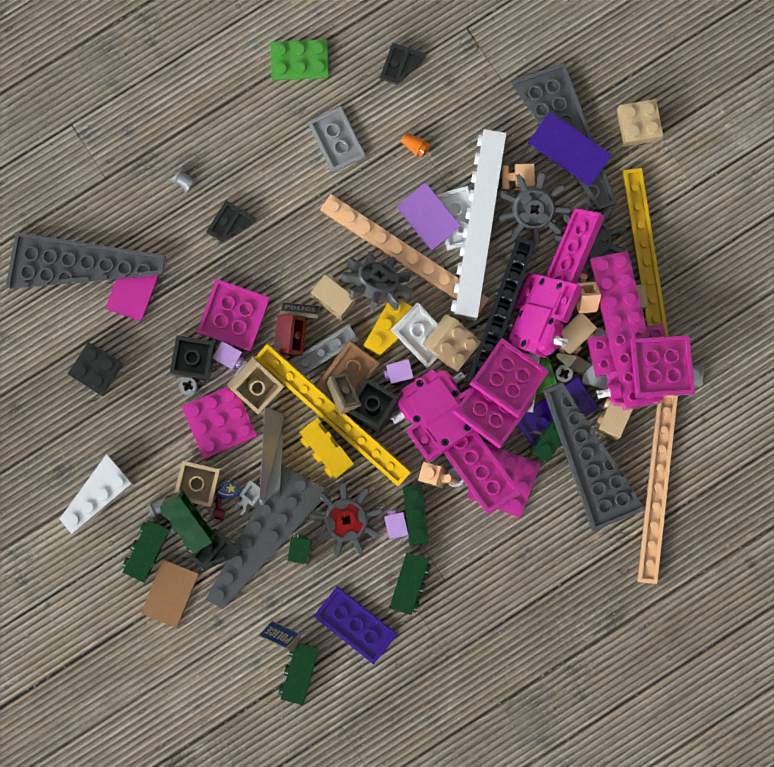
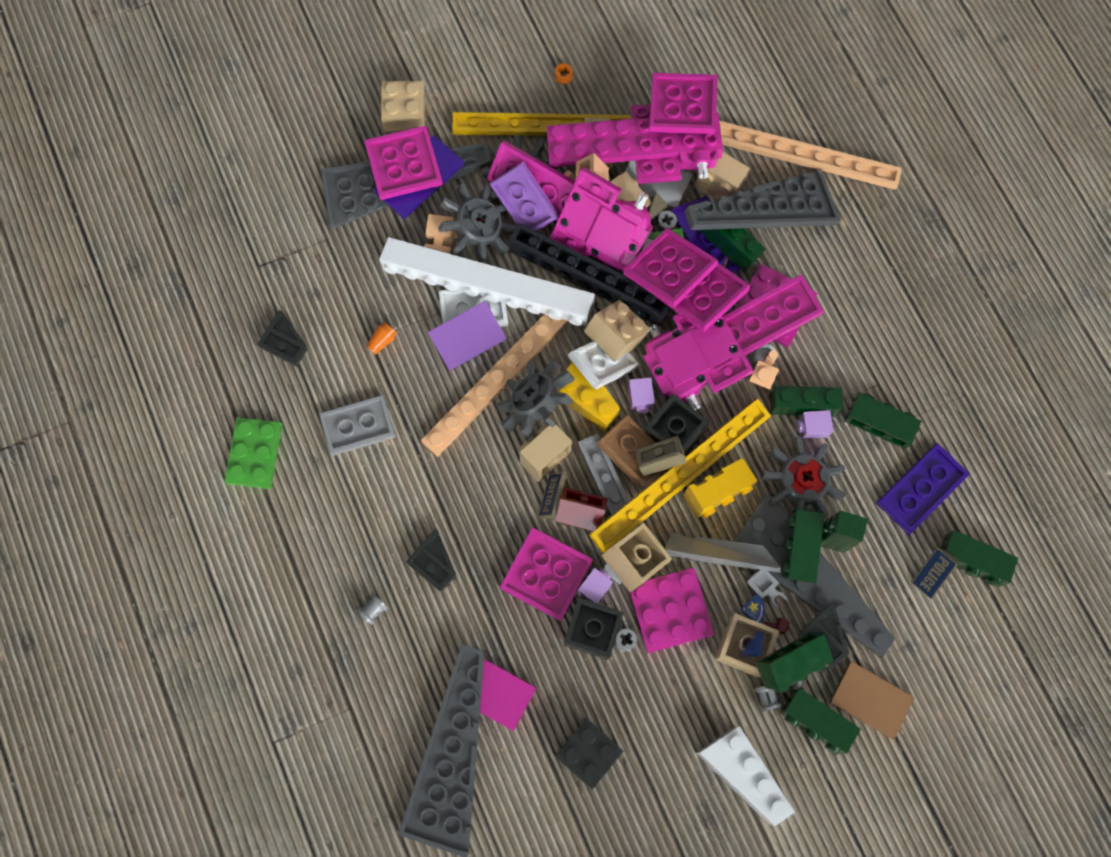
camera: 85 degrees left, 10 degrees down
(193, 485) = (754, 646): none -> clear blue slope
(284, 520) = (803, 546): none -> dark green brick
(558, 243) = (524, 198): none -> medium lavender tile
(576, 132) = (403, 162): none -> dark pink plate
(706, 266) = (563, 79): none -> orange bush

